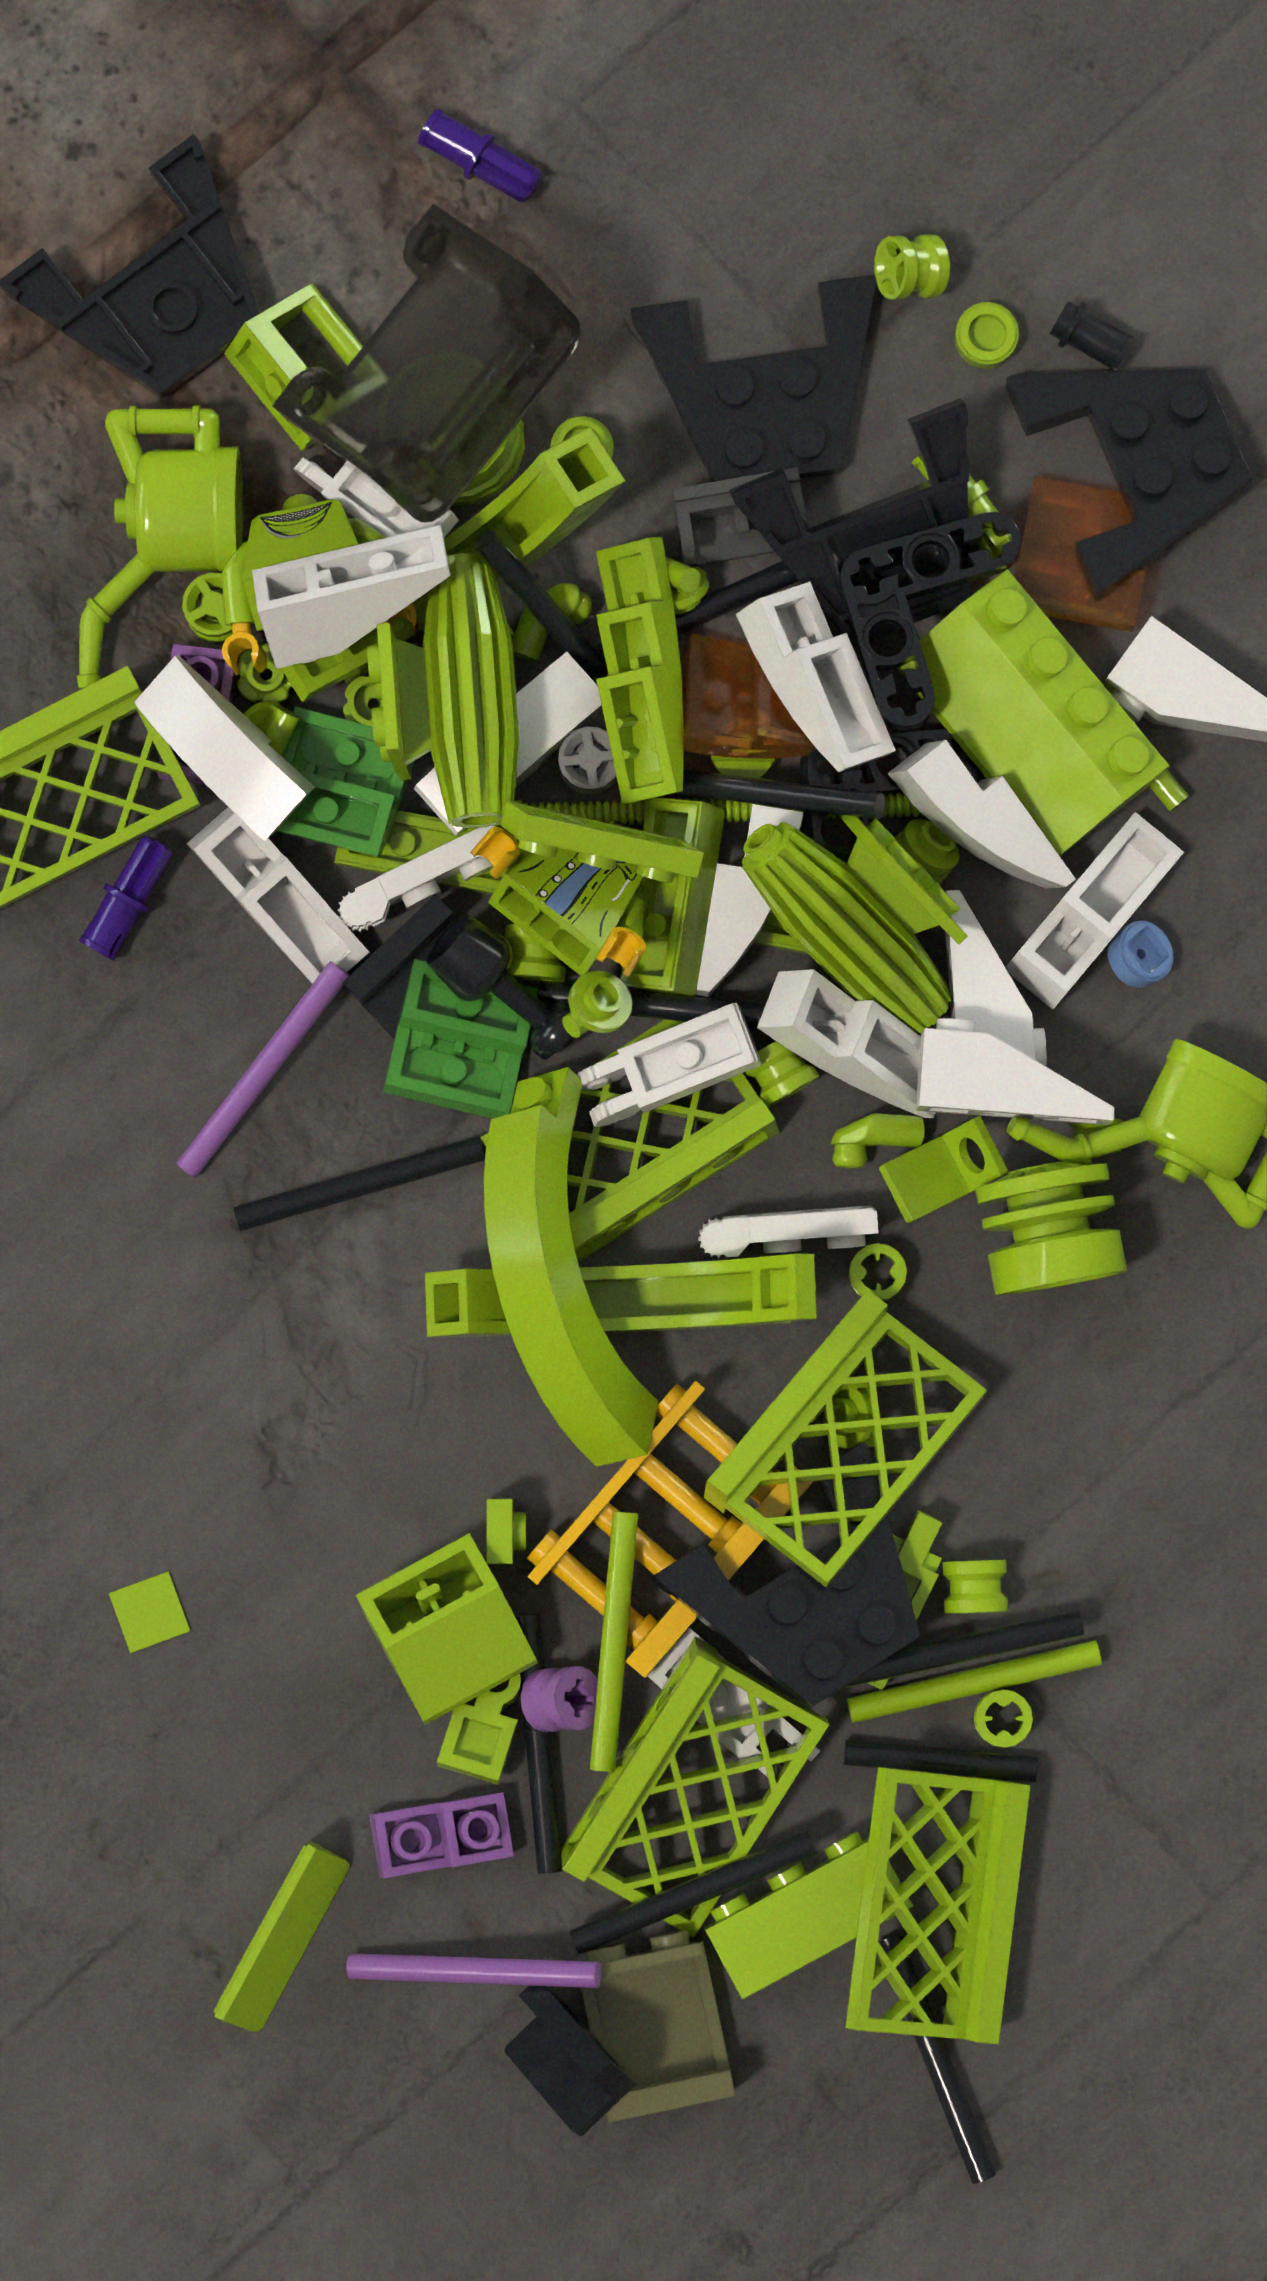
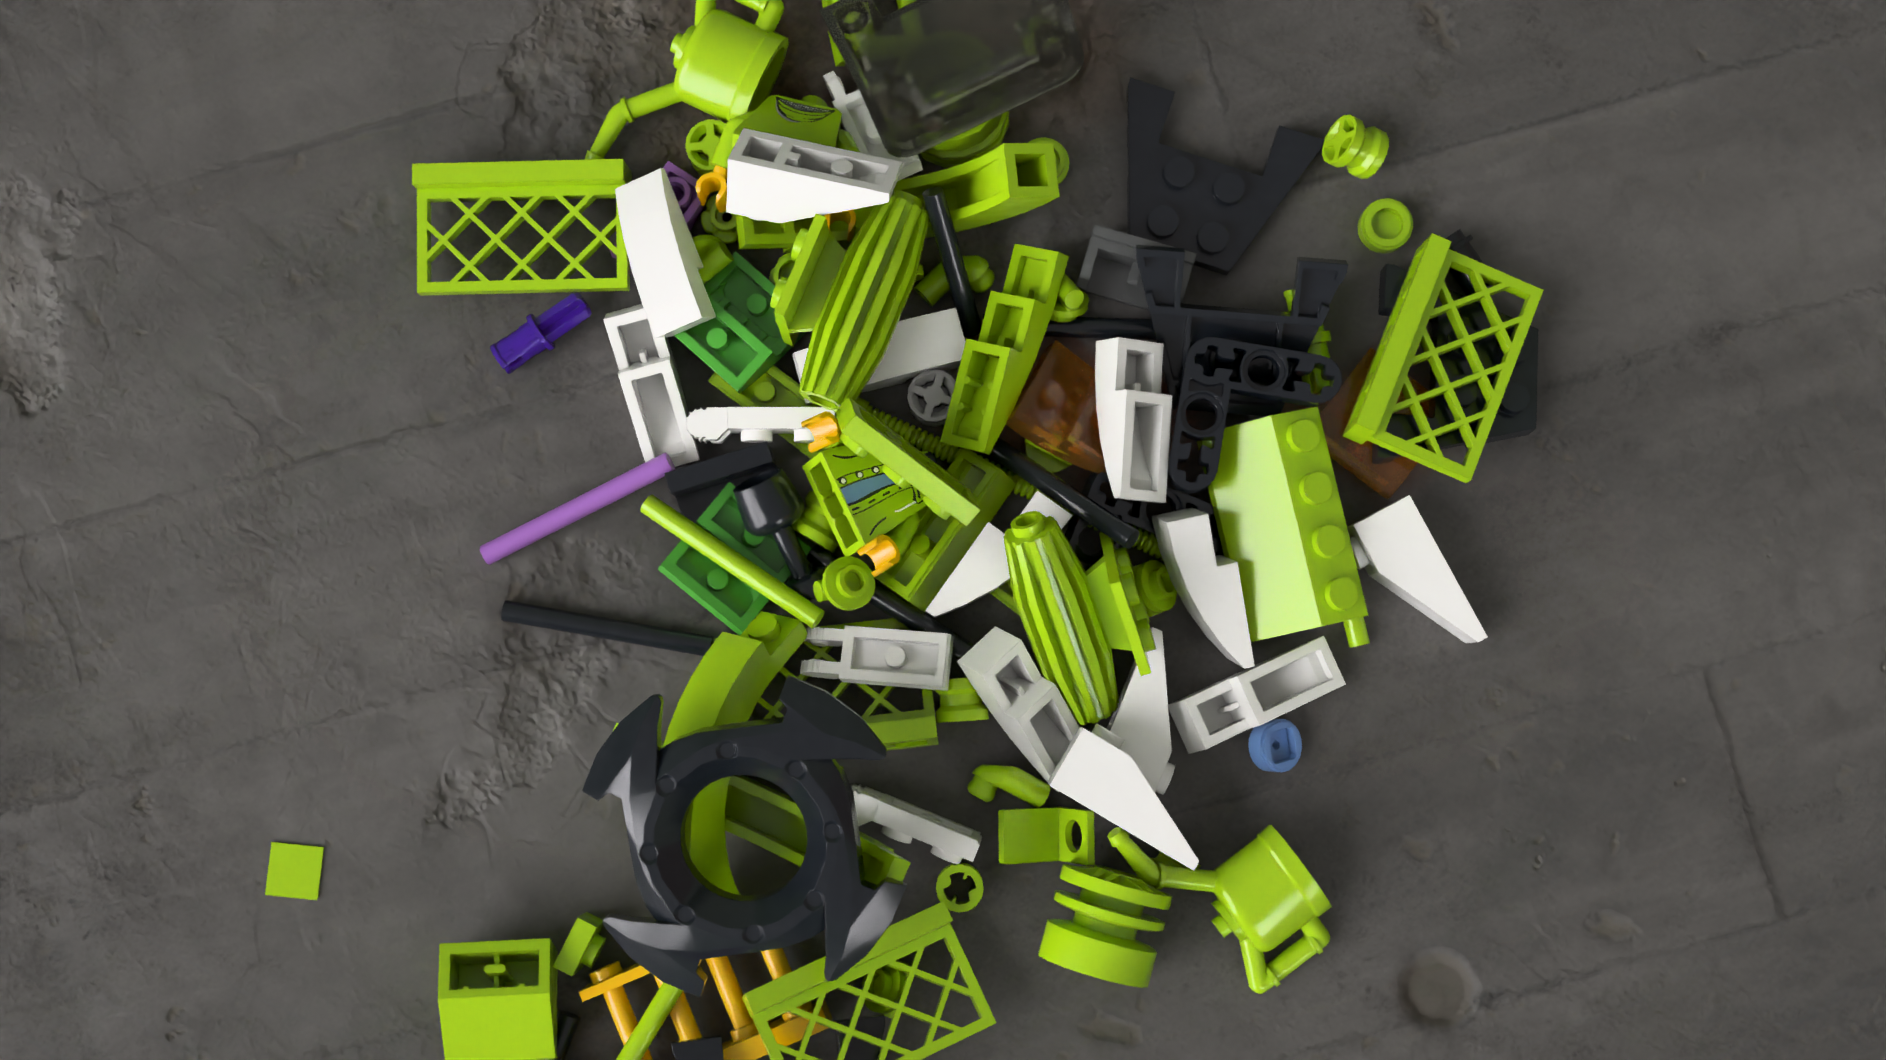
camera: 30 degrees right, 0 degrees up
(461, 1041) = (732, 561): none -> lime bar
(608, 1417) = (690, 913): none -> black piece
(1063, 462) = (1400, 343): none -> lime fence

